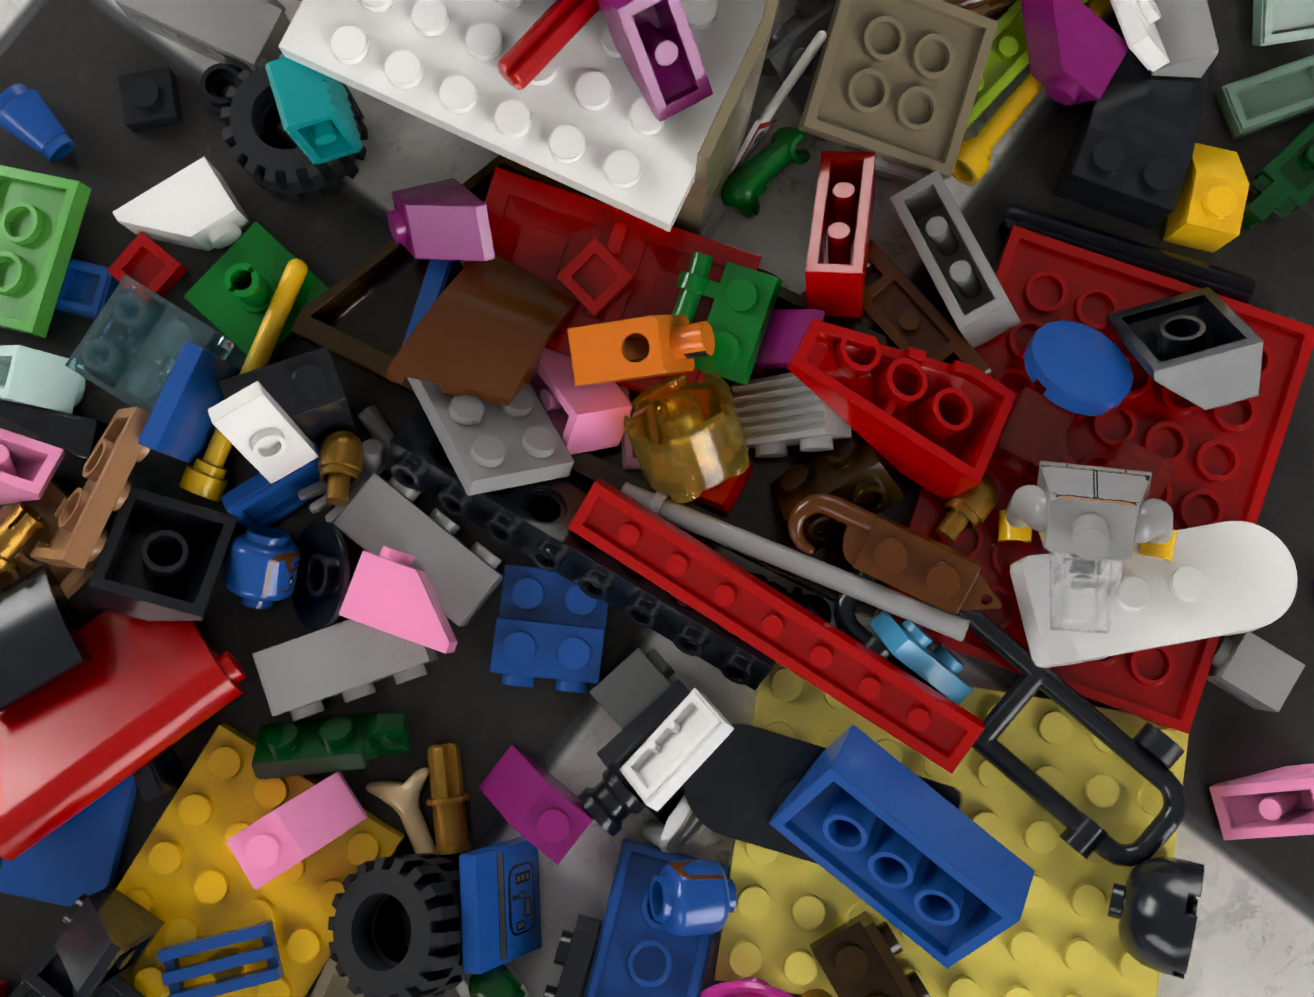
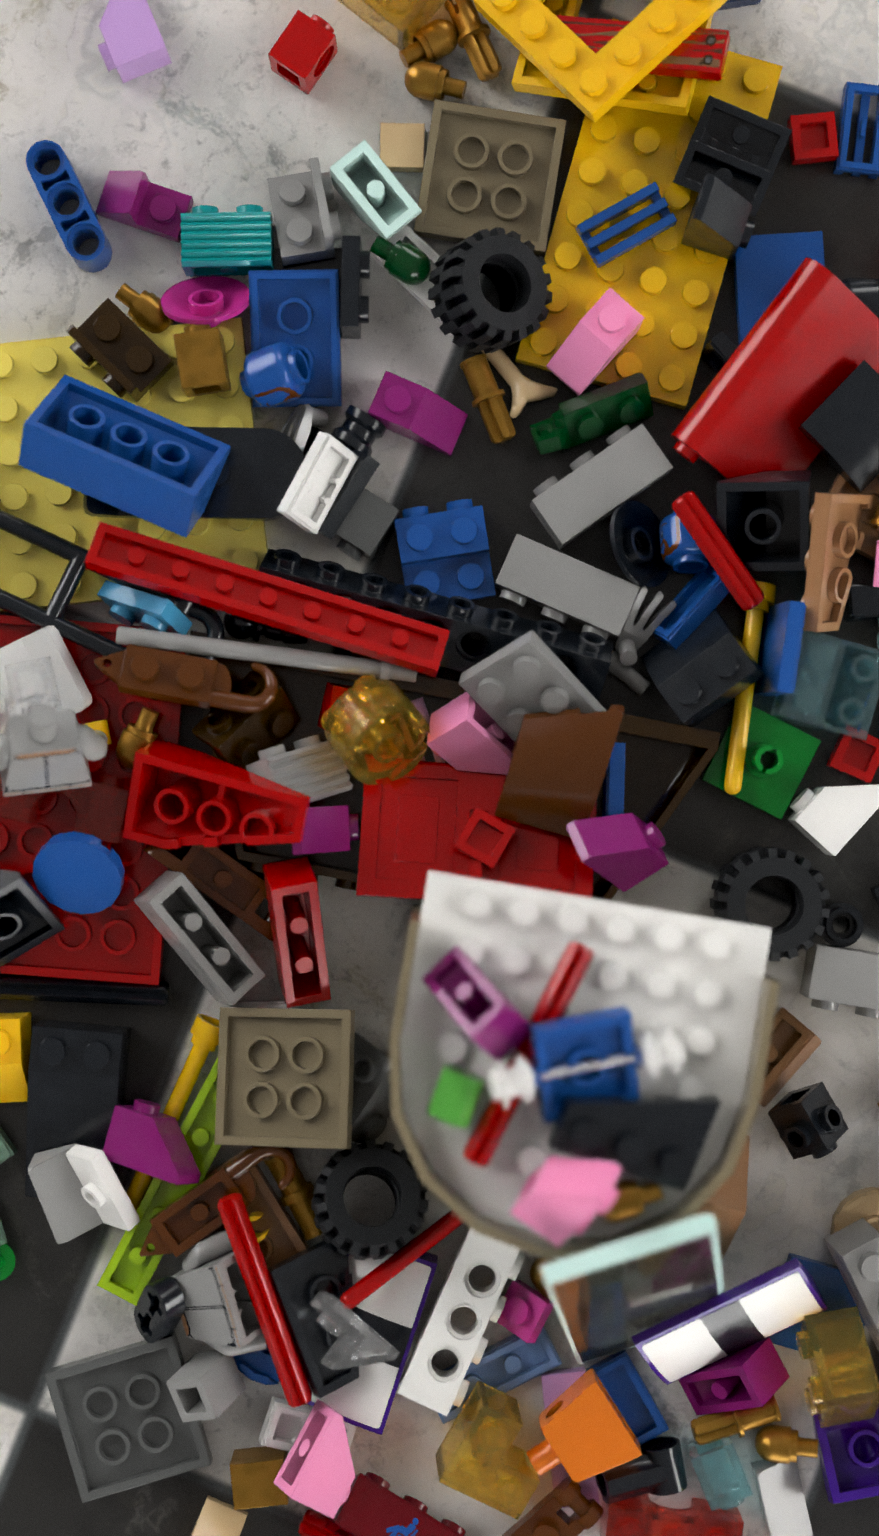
camera: 165 degrees right, 5 degrees up
(226, 538) = (718, 550): none -> red axle
(263, 432) = (710, 638): white plate -> none
(313, 111) = (745, 900): teal brick -> none
(340, 465) = (648, 635): pearl gold cylinder -> none
(397, 600) = (566, 537): bright pink slope -> none
(499, 904) = (422, 329): blue tile -> none
(637, 348) = (432, 783): orange torso -> none
(737, 316) = (362, 832): green plate -> none
(750, 179) = (384, 965): green piece -> none
(767, 119) = (376, 1039): white piece -> none
(775, 939) = (202, 360): none -> pearl gold brick

